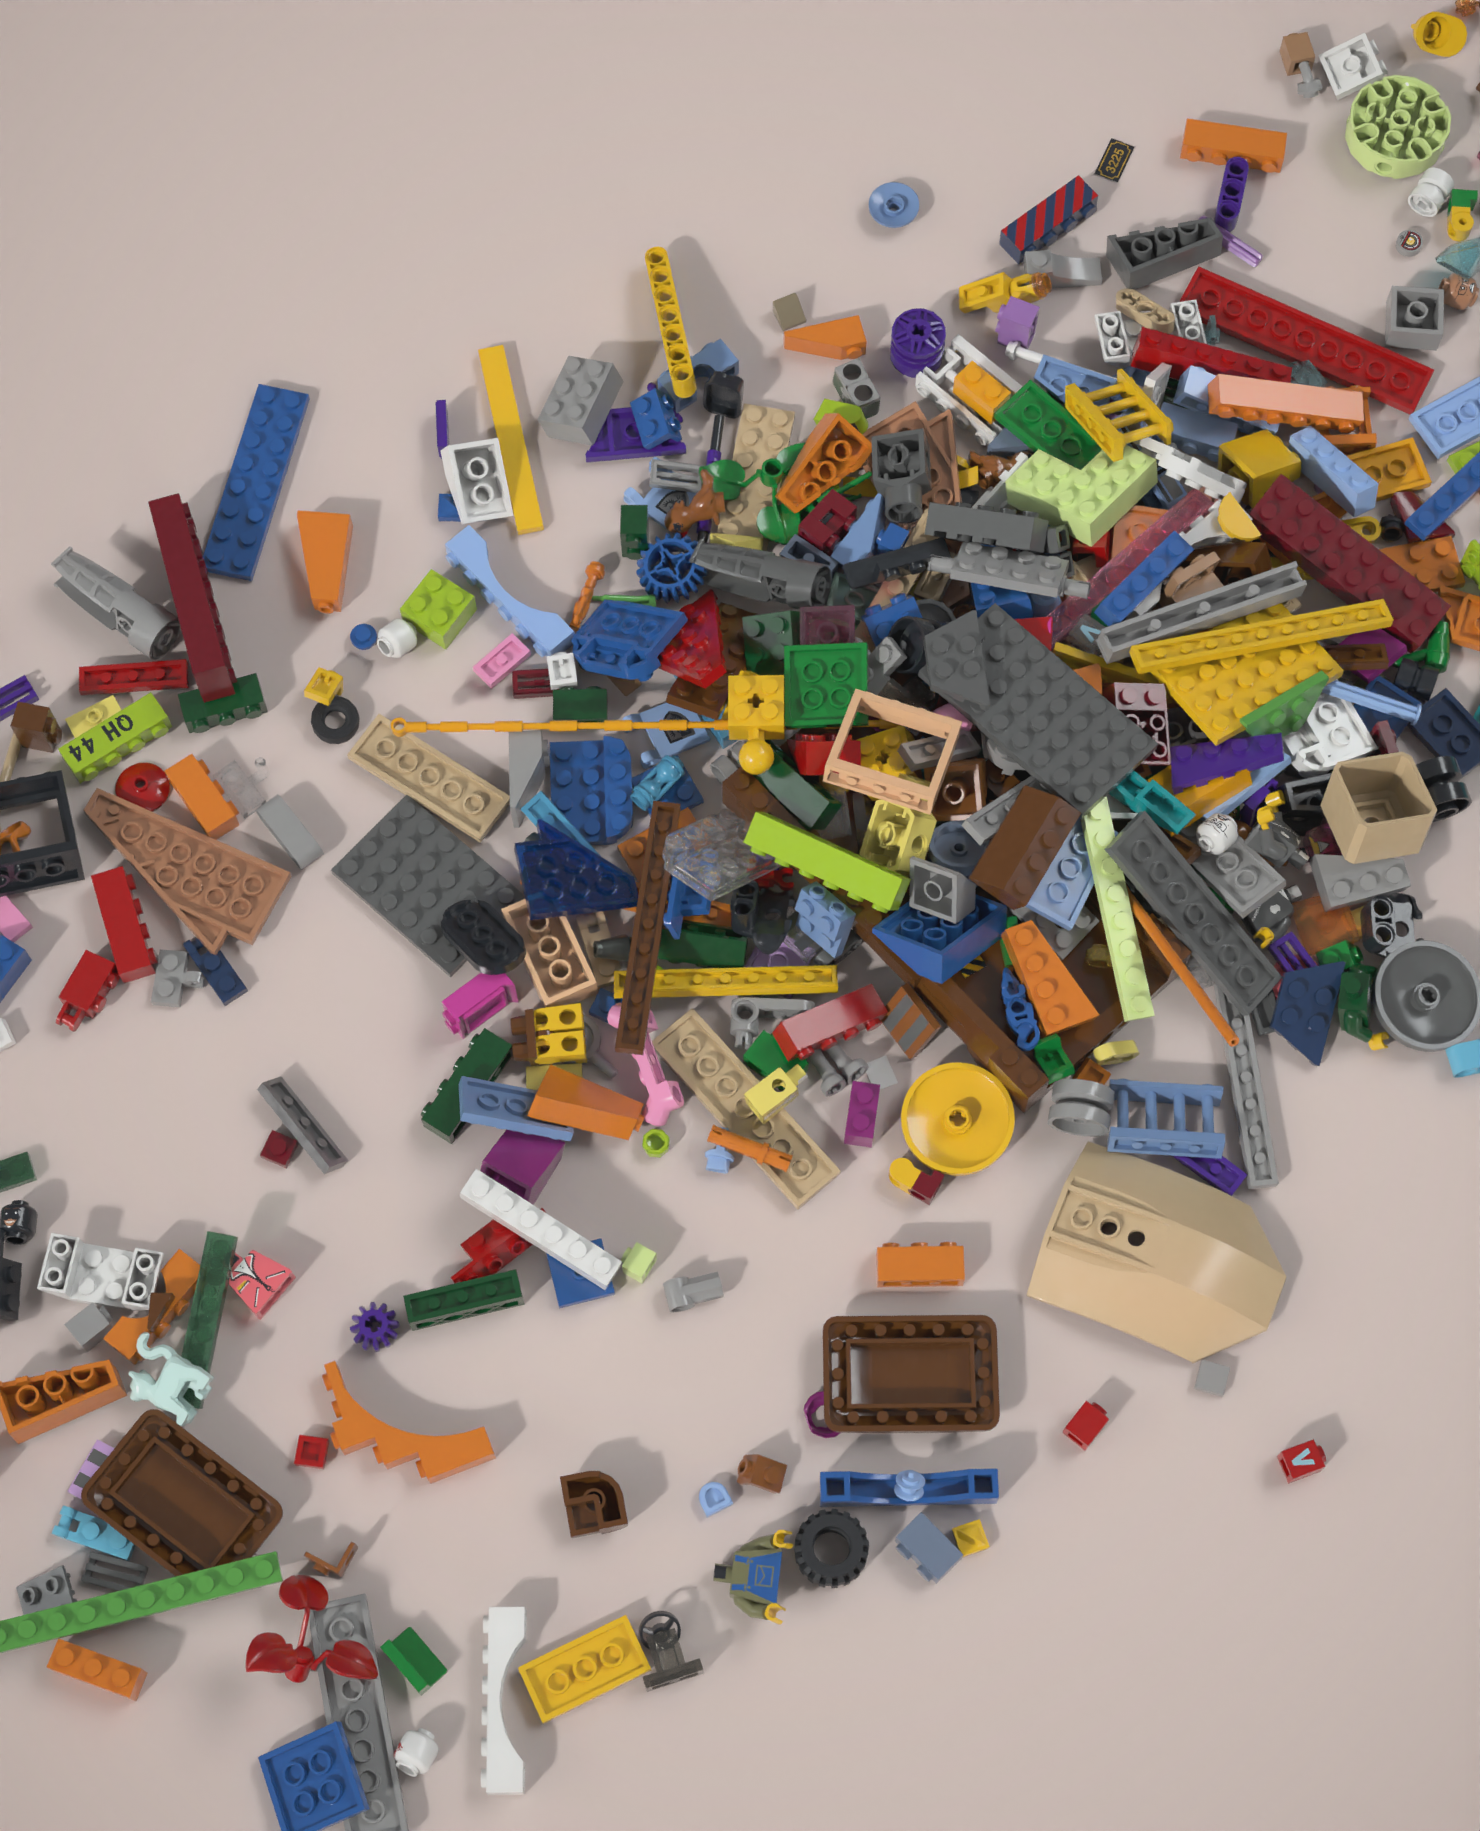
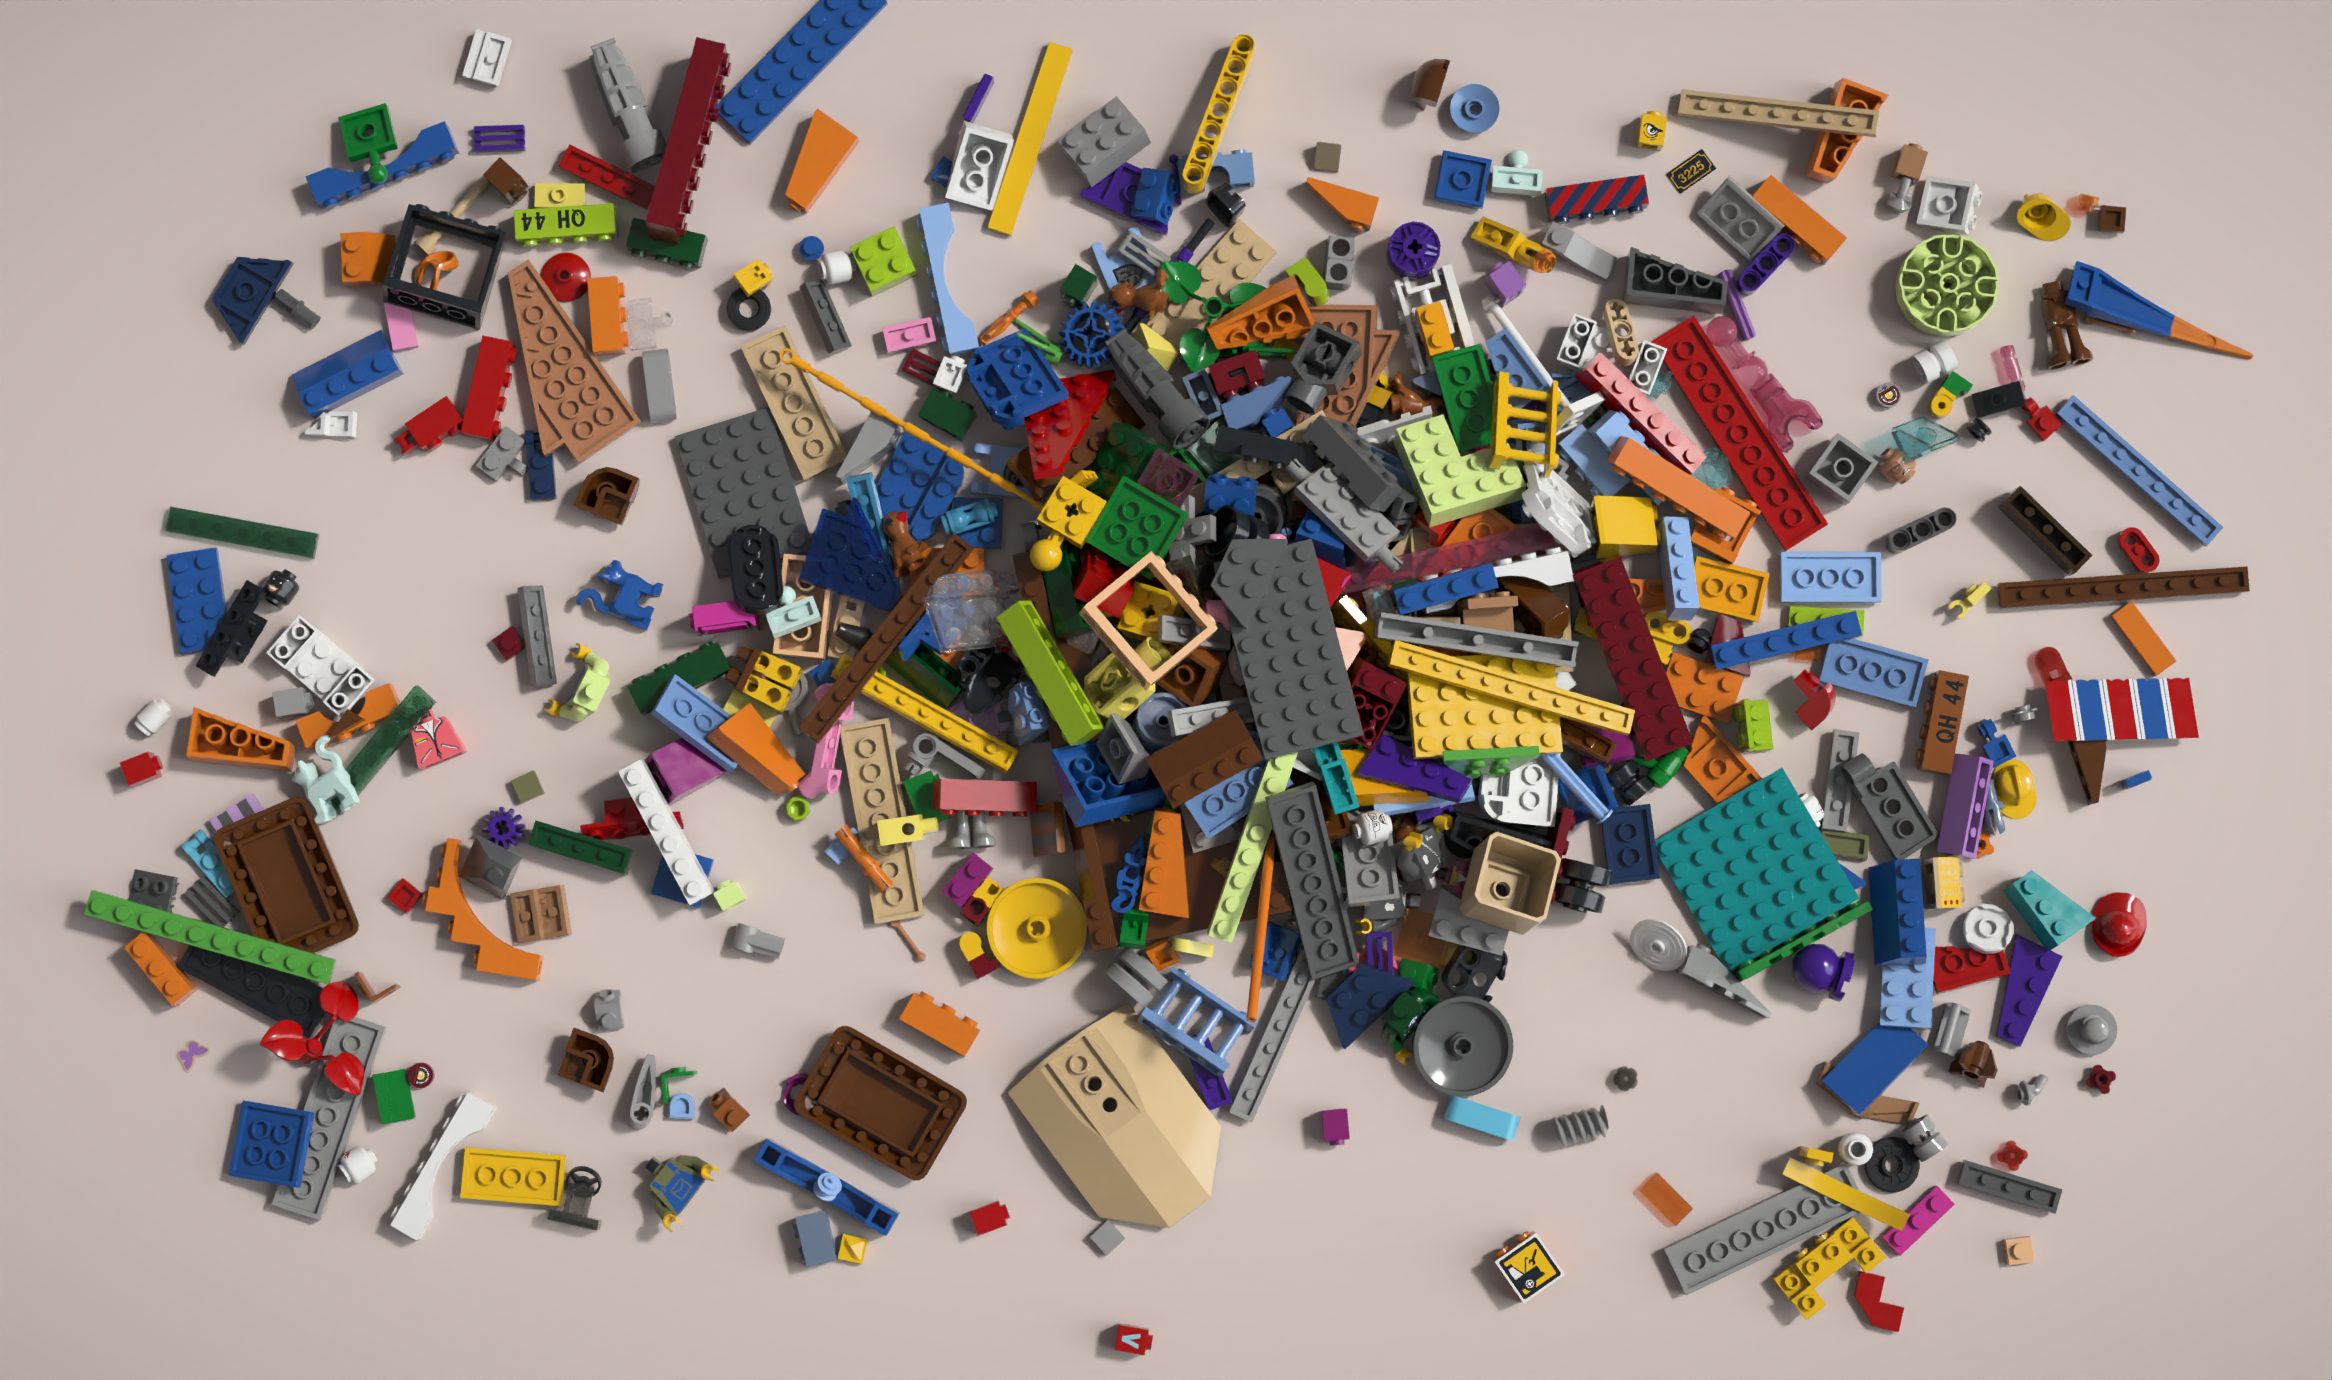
camera: 25 degrees right, 15 degrees up
(176, 1739) = (192, 1051): none -> medium lavender sticker
(205, 1628) = (260, 987): none -> black plate
(297, 953) = (608, 494): none -> reddish brown brick
(373, 1045) = (627, 598): none -> blue animal
(375, 1275) = (527, 787): none -> olive tile
(383, 1146) = (587, 690): none -> yellowish green torso
(383, 1371) = (490, 866): none -> dark grey slope
(412, 686) = (825, 316): none -> dark grey plate
(429, 1622) = (421, 1075): none -> tile
(460, 1390) = (540, 913): none -> medium nougat slope
(545, 956) = (792, 614): none -> light aqua plate
(584, 1444) = (608, 1010): none -> light grey bracket
(616, 842) = (905, 549): none -> dark orange animal
(671, 1508) = (644, 1094): none -> light grey piece
(688, 1466) = (679, 1071): none -> green bracket
(837, 1523) = (722, 1204): black tyre -> none
(842, 202) = (1428, 83): none -> reddish brown brick
(860, 1215) = (920, 956): none -> nougat hinge
(881, 1072) = (1004, 853): white sticker -> none
(887, 1128) = (981, 901): none -> leg
(921, 267) = (1462, 179): none -> blue plate
(967, 241) = (1517, 178): none -> light aqua plate
(1060, 143) = (1651, 131): none -> yellow brick
(1161, 64) = (1779, 113): none -> tan plate
(1184, 169) = (1740, 219): none -> light grey tile
(1193, 1022) = (1279, 951): none -> blue bracket
(1220, 51) = (1834, 149): none -> orange wedge
(1235, 521) = (1556, 575): yellow tile -> none
(1303, 292) = (1764, 387): none -> clear pink piece
(1358, 1141) = (1335, 1126): none -> magenta brick

